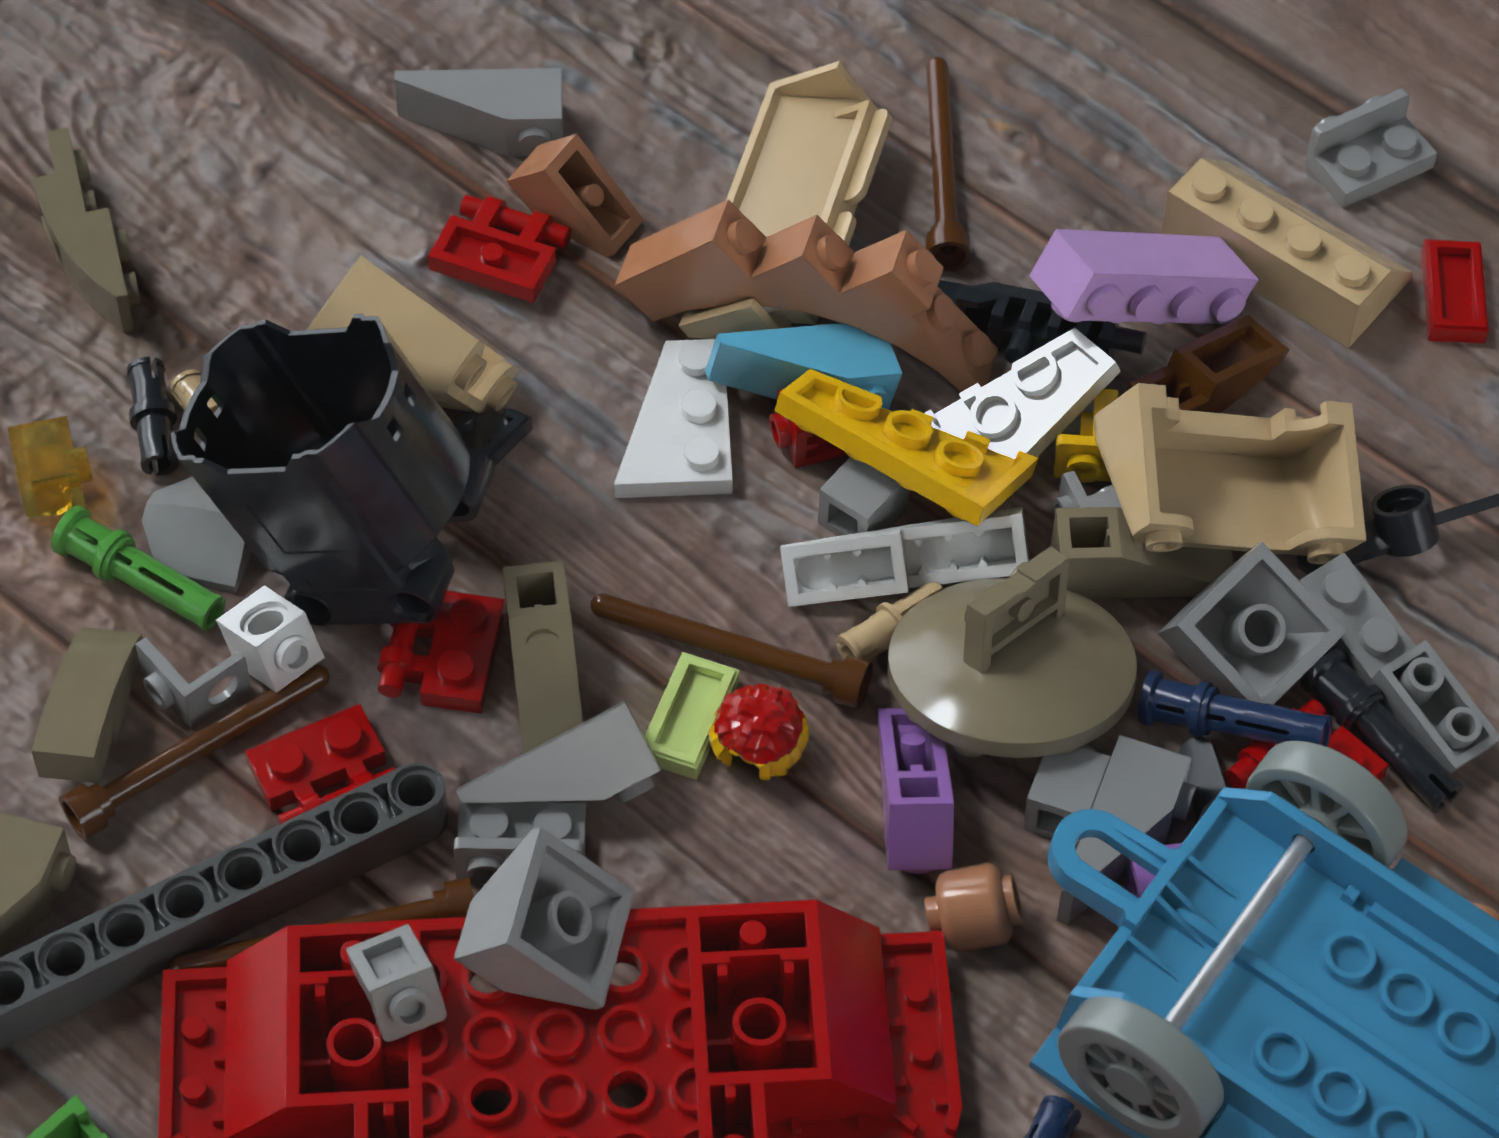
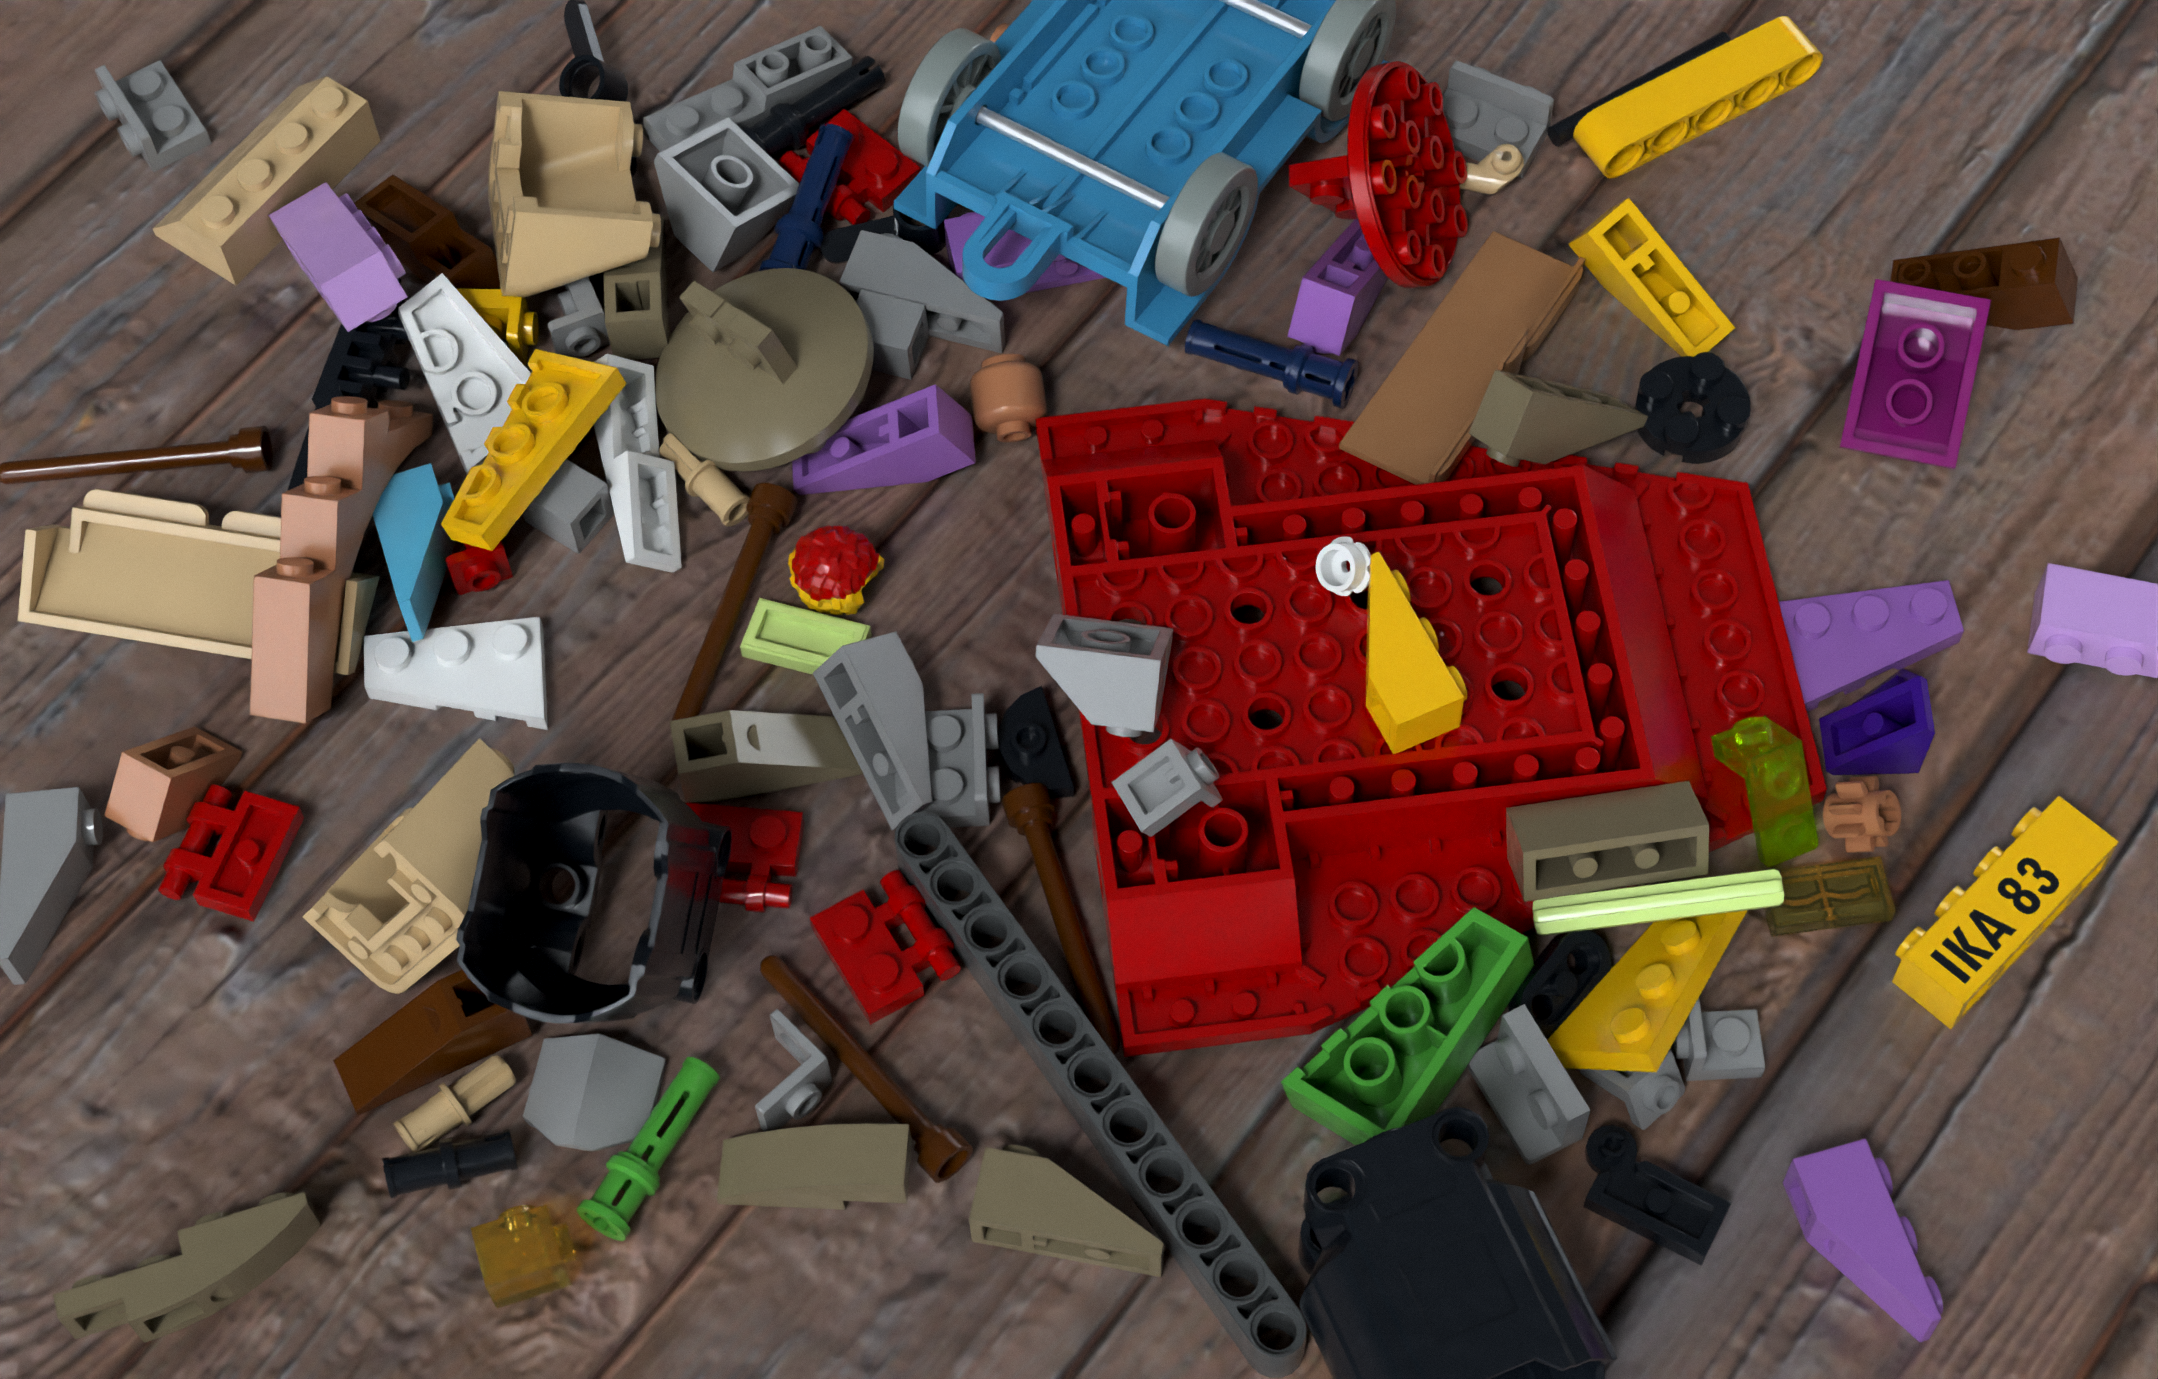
camera: 90 degrees left, 5 degrees up
(272, 638) = (720, 996): white brick -> none
(1454, 291) = (311, 55): red tile -> none

